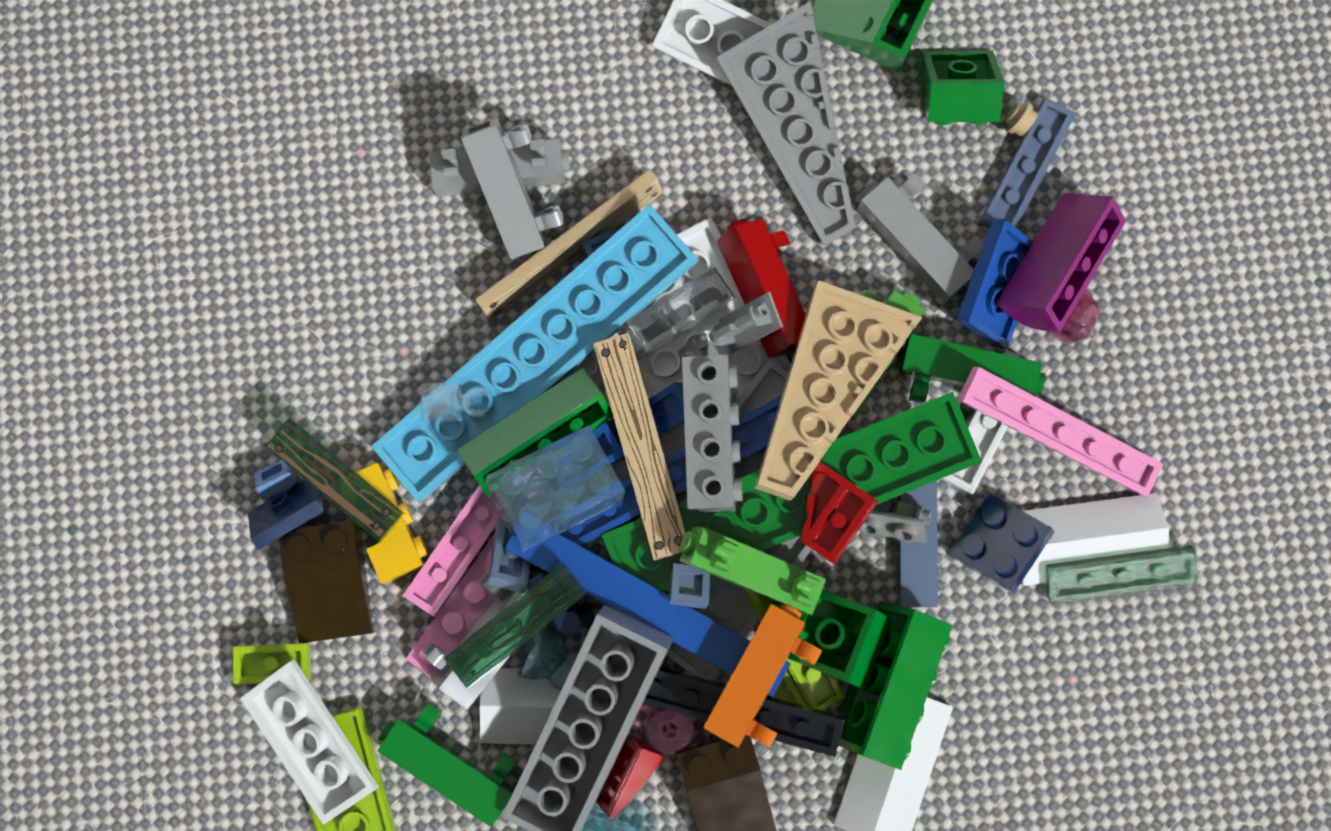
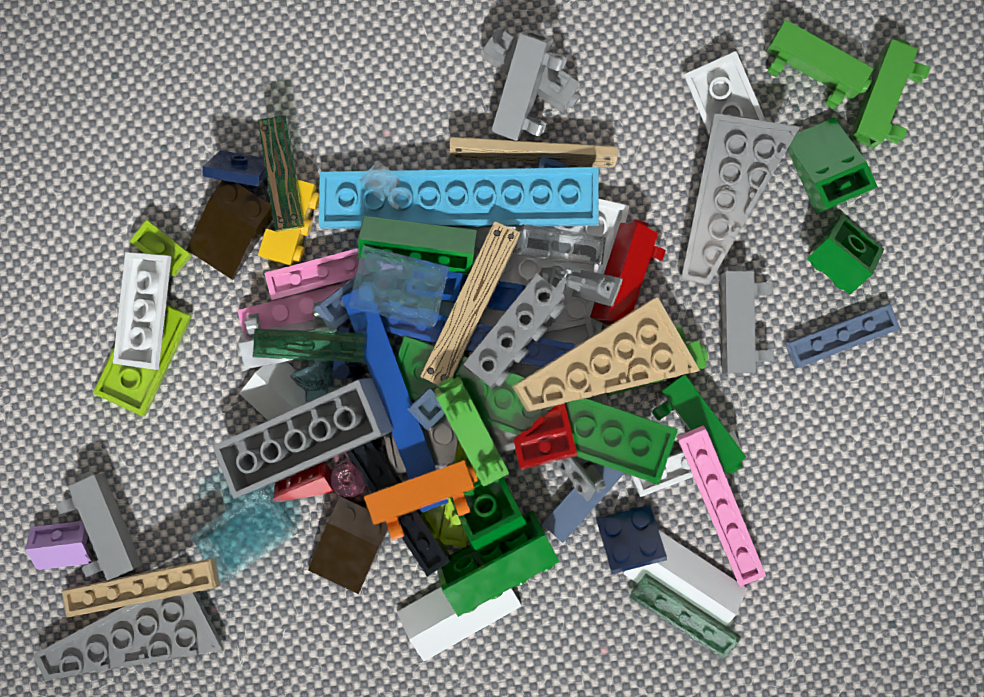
camera: 45 degrees right, 5 degrees up
(274, 480) = (248, 144): medium blue plate -> none
(446, 770) = (206, 391): green brick -> none
(997, 263) = (764, 390): blue plate -> none
(1020, 118) = (864, 303): tan plate -> none
(1062, 261) = (812, 408): magenta brick -> none
(1081, 321) = (790, 445): clear pink head -> none

